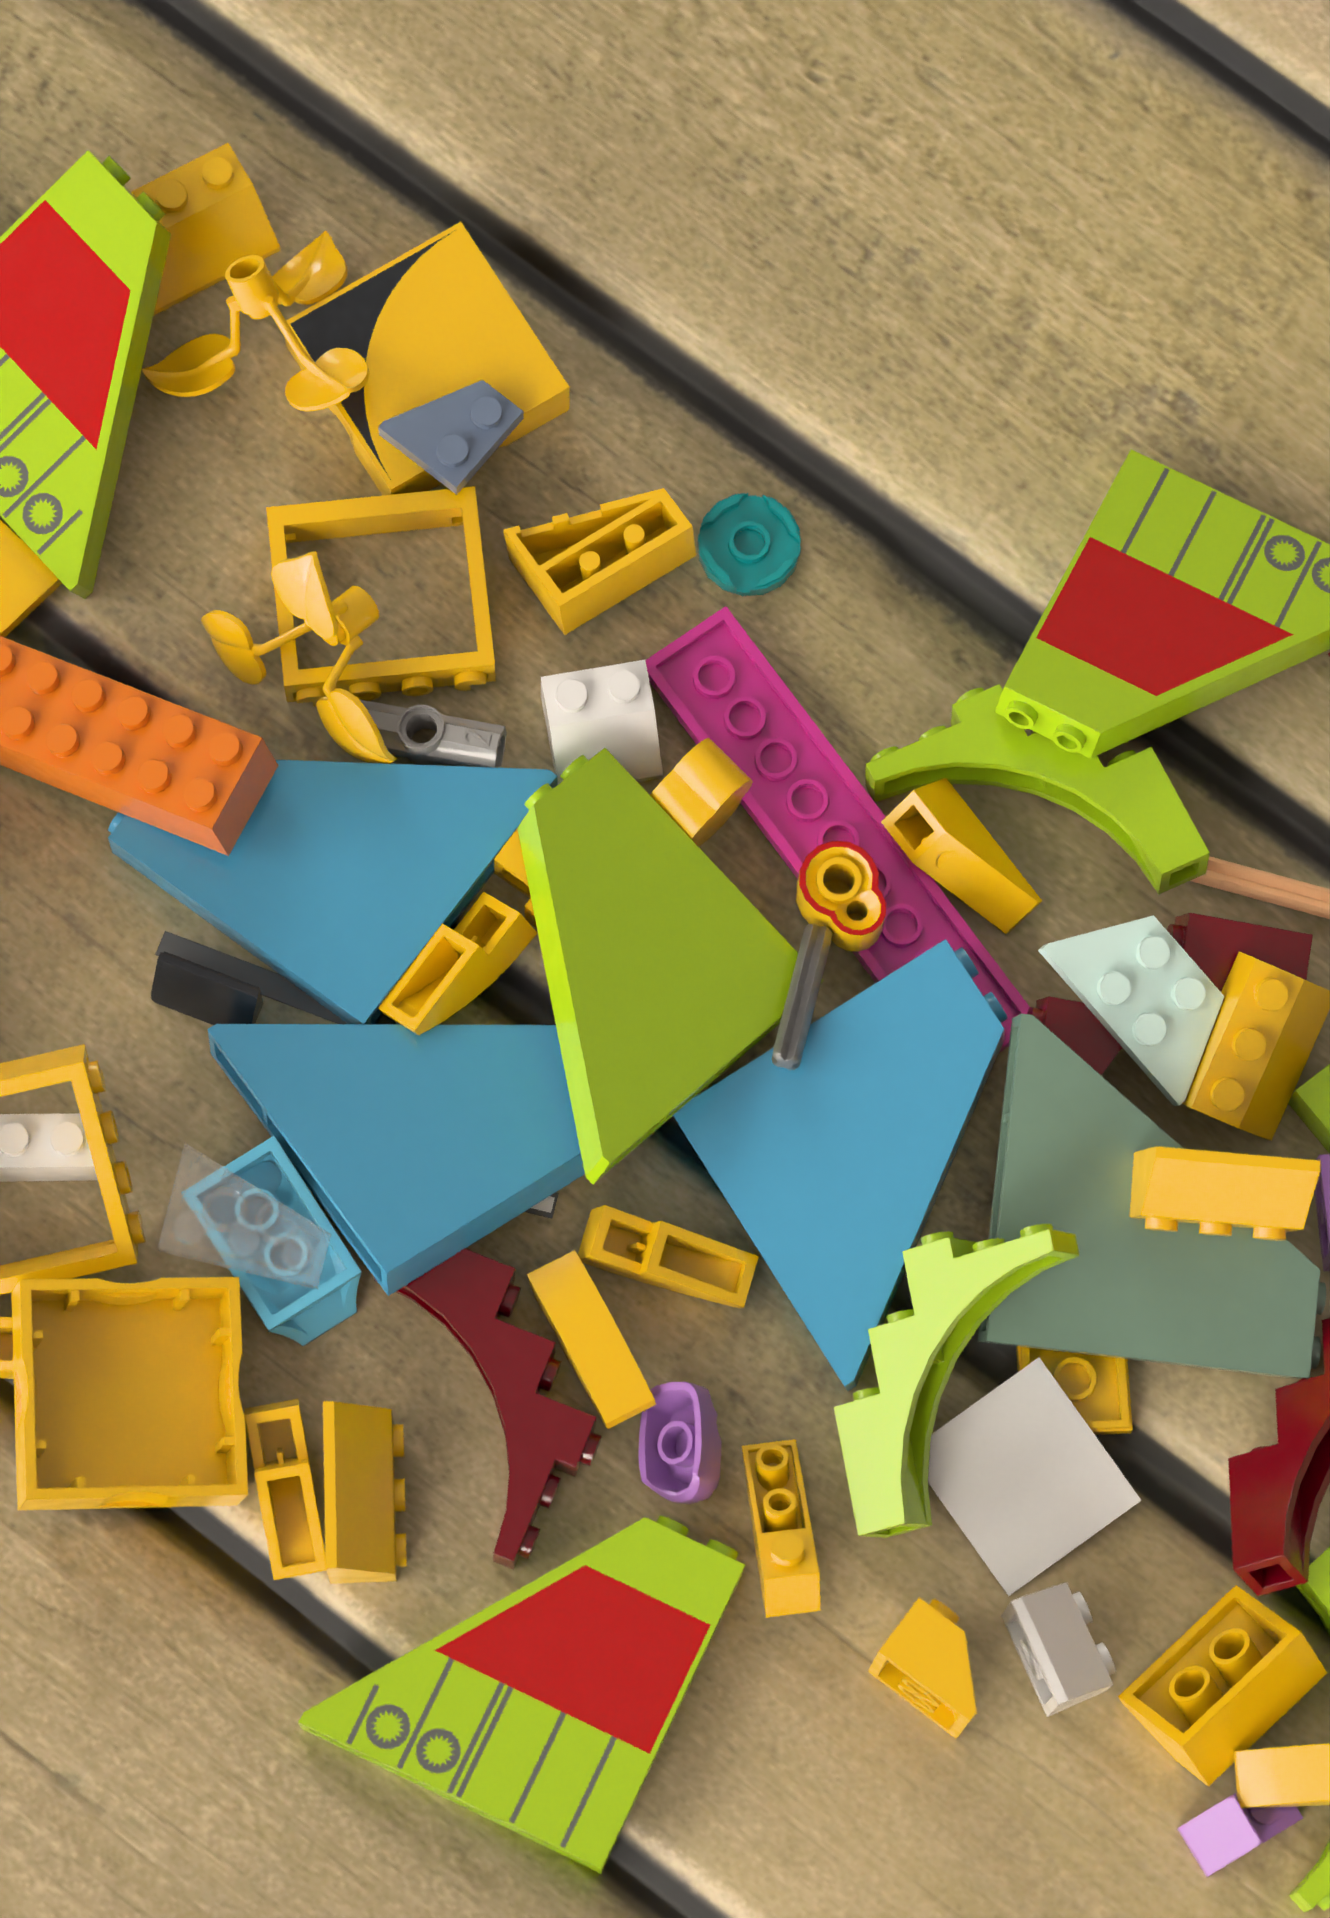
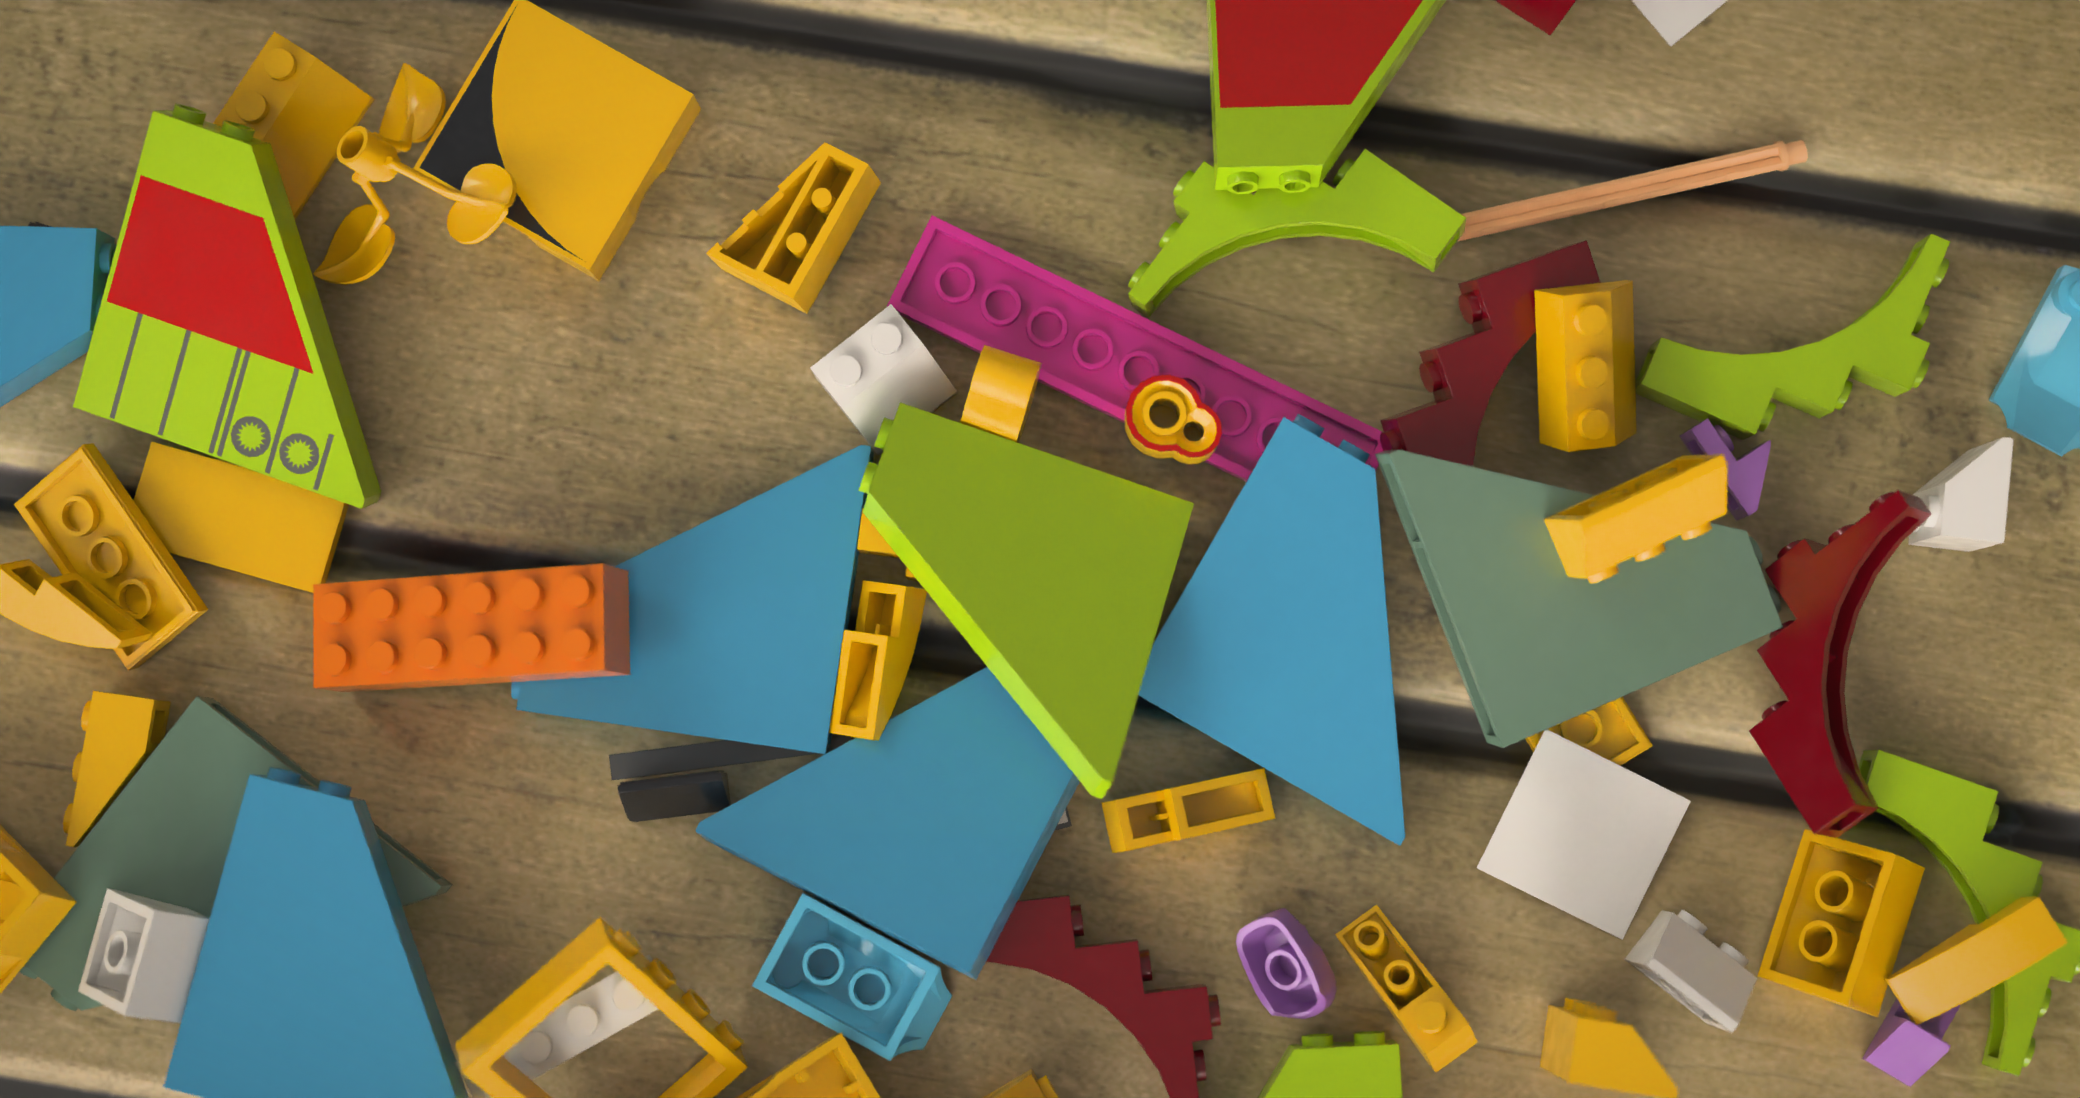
camera: 20 degrees left, 10 degrees up
(238, 1226) = (815, 990): clear wing -> none
(306, 596) = (601, 425): yellow plant -> none
(380, 516) = (585, 298): yellow window -> none
(454, 432) = (616, 190): sand blue wing -> none
(454, 744) = (705, 477): light grey piece -> none
(590, 1339) = (1164, 919): yellow slope -> none
(749, 544) = (920, 147): teal tile -> none
(802, 996) = (1187, 532): flat silver axle -> none
(891, 1426) = (1455, 856): arch -> none
(960, 854) = (1248, 327): yellow slope -> none
(1144, 996) = (1476, 374): light aqua wing -> none

